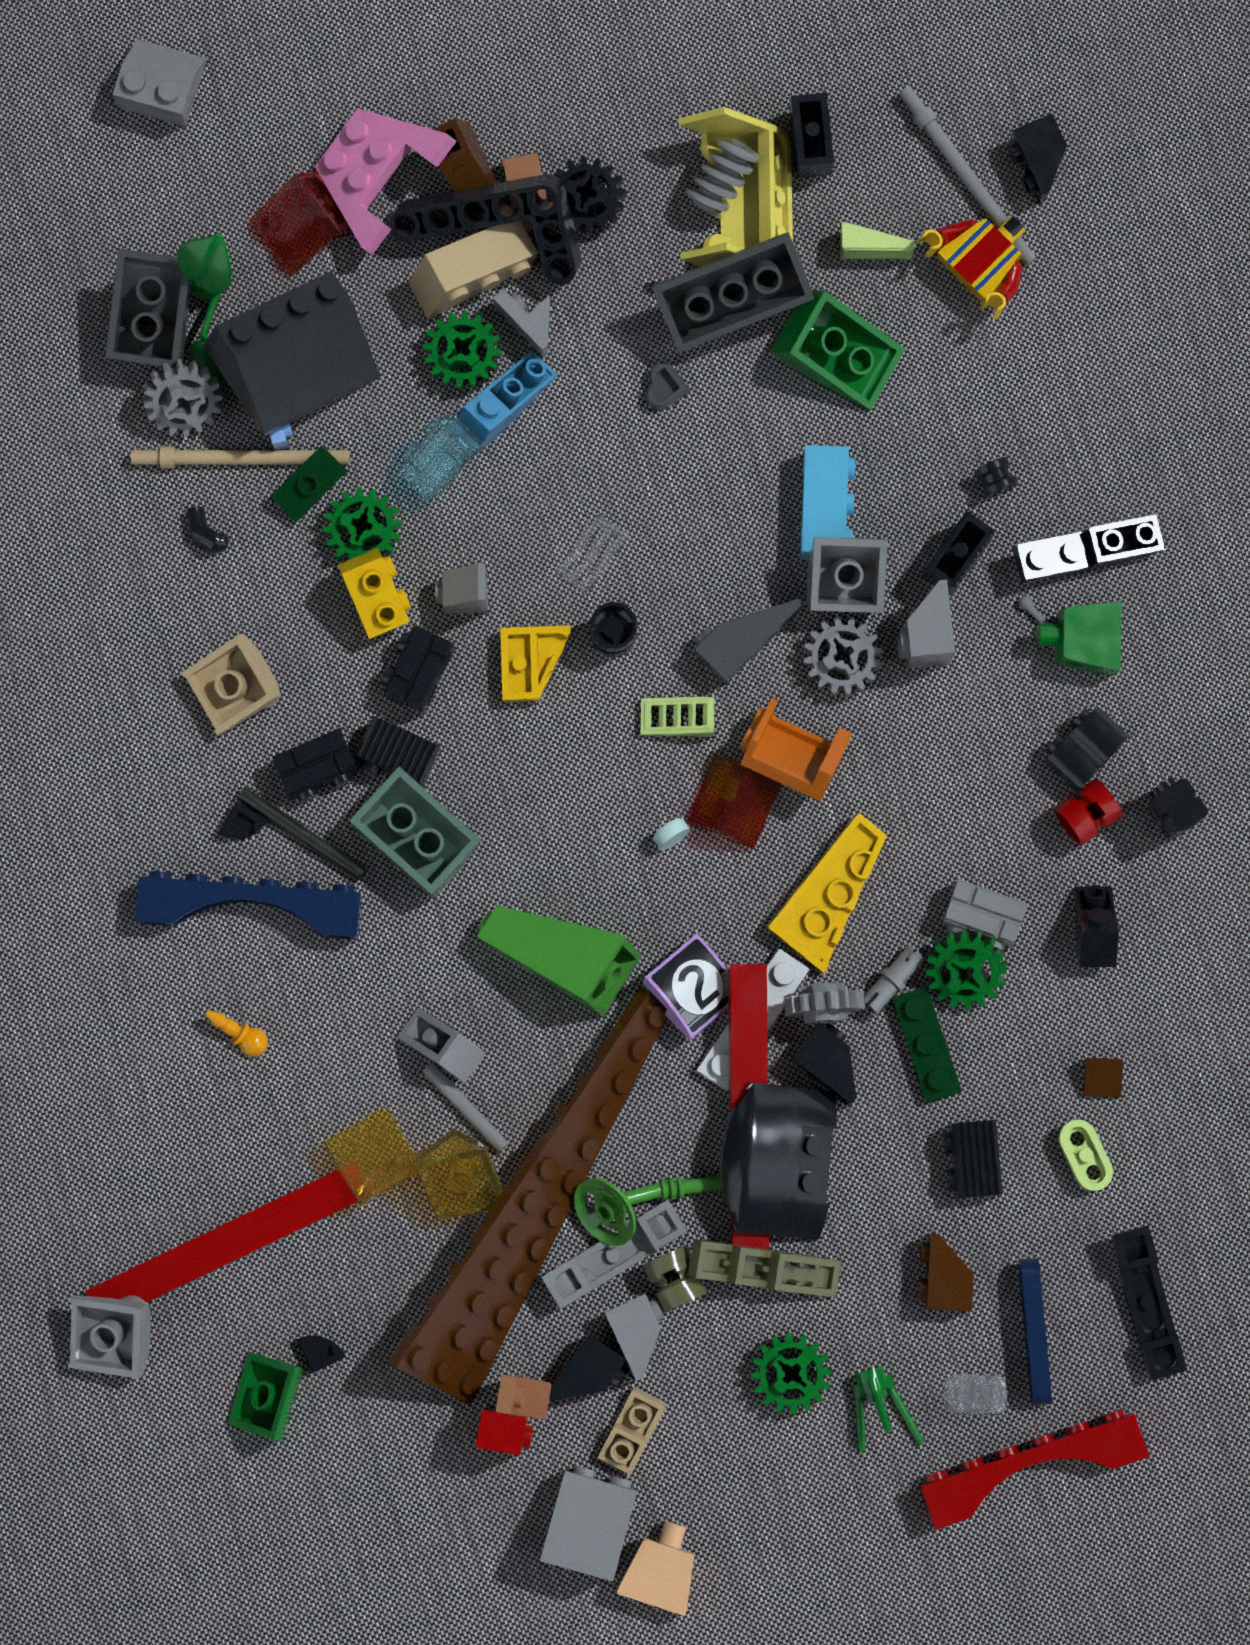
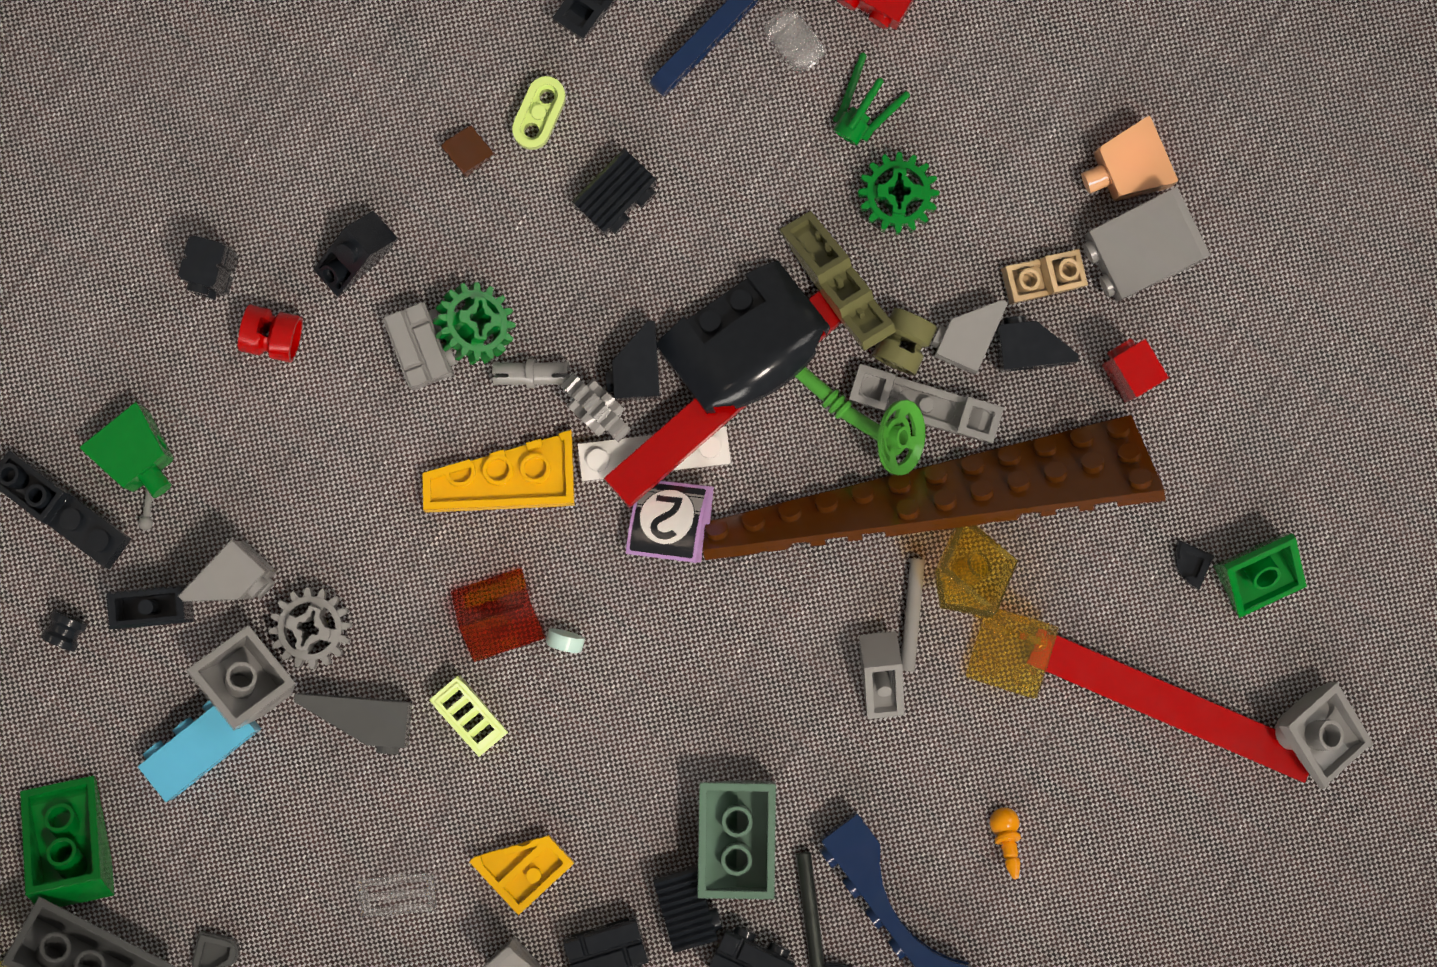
camera: 130 degrees left, 5 degrees up
(523, 1397) = (1094, 378): nougat slope -> none
(569, 956) = (730, 635): bright green slope -> none
(613, 629) = (443, 825): black wheel -> none
(792, 753) = (421, 600): orange panel -> none
(926, 1044) = (558, 305): dark green plate -> none
(947, 1277) = (725, 135): reddish brown slope -> none
(1086, 748) = (220, 377): black brick -> none

